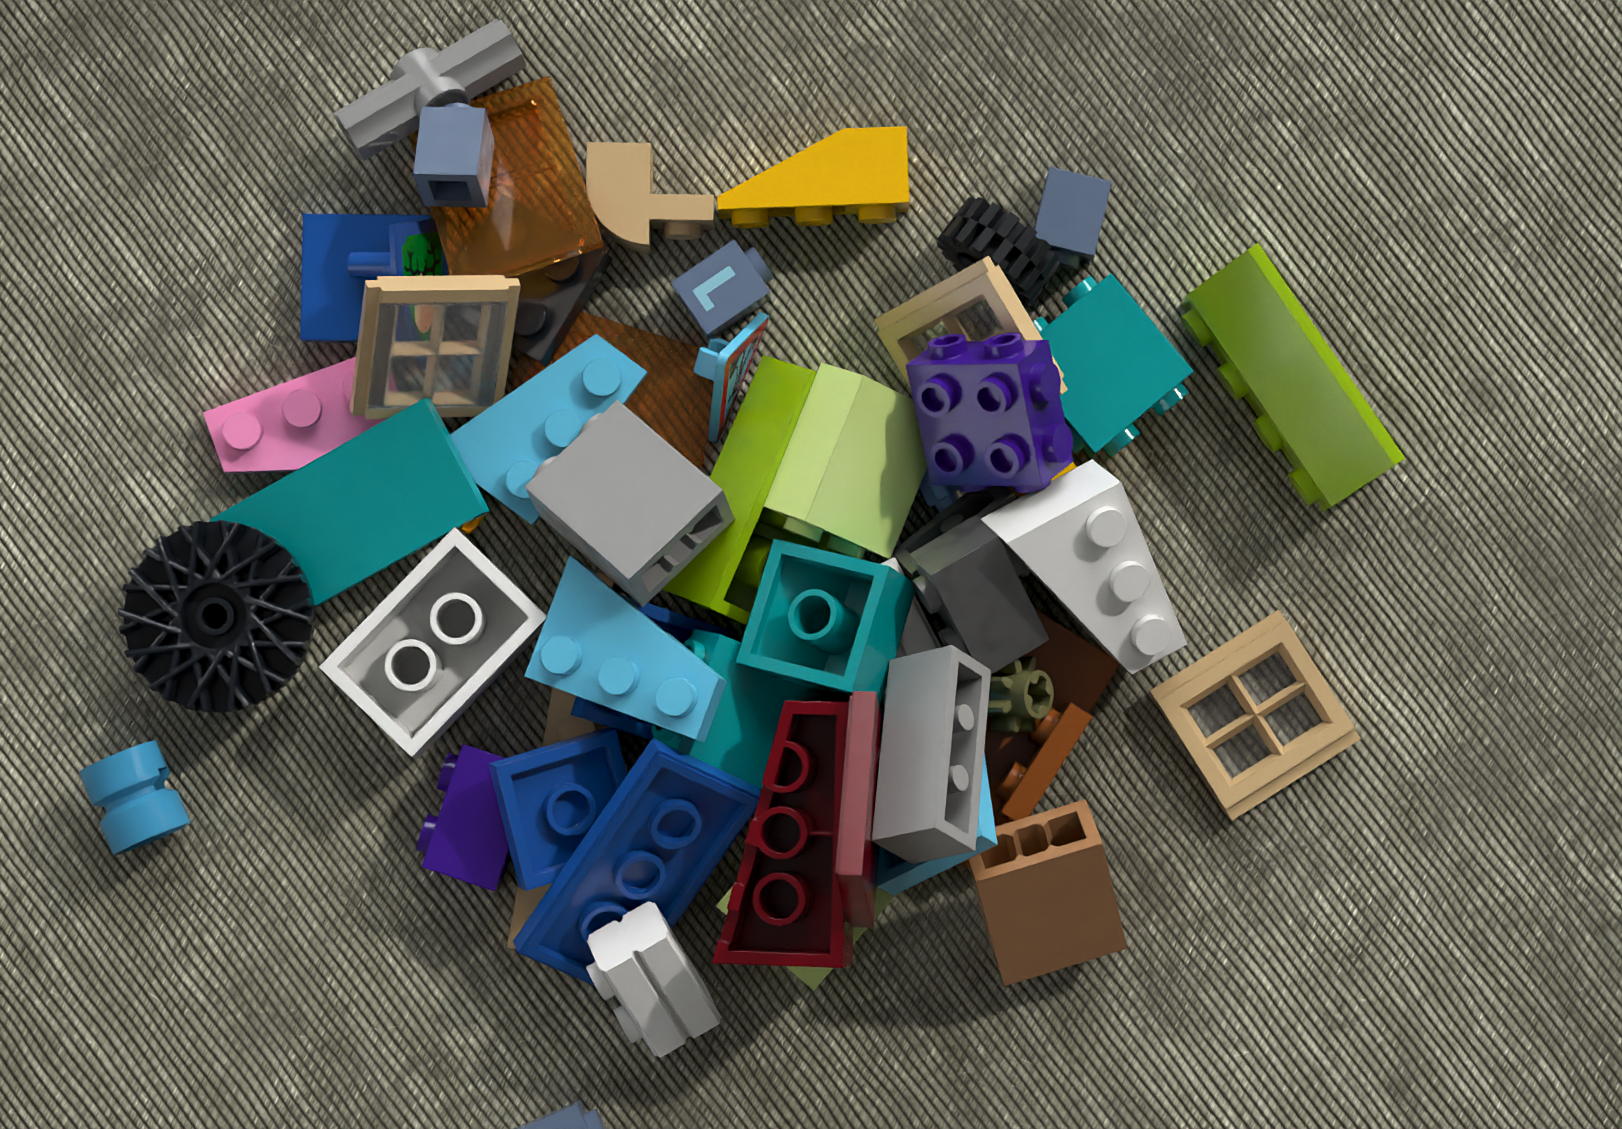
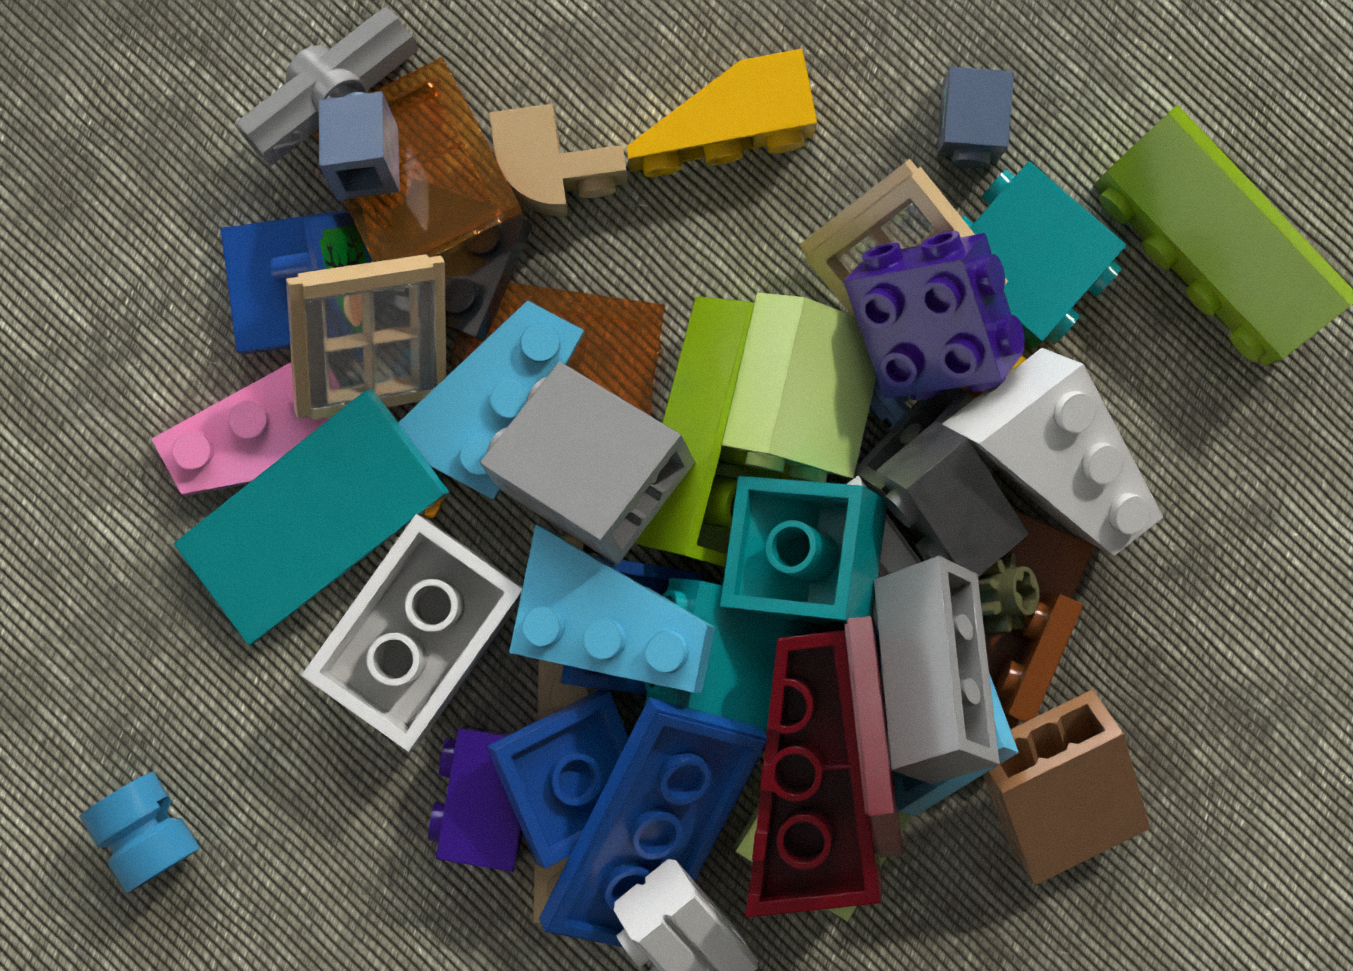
camera: 10 degrees left, 0 degrees up
(171, 606) = (150, 648): black wheel -> none
(724, 288) = (646, 237): sand blue brick -> none
(727, 366) = (663, 313): medium azure piece -> none
(987, 231) = (898, 135): black tyre -> none
(1255, 715) = (1234, 576): tan piece -> none

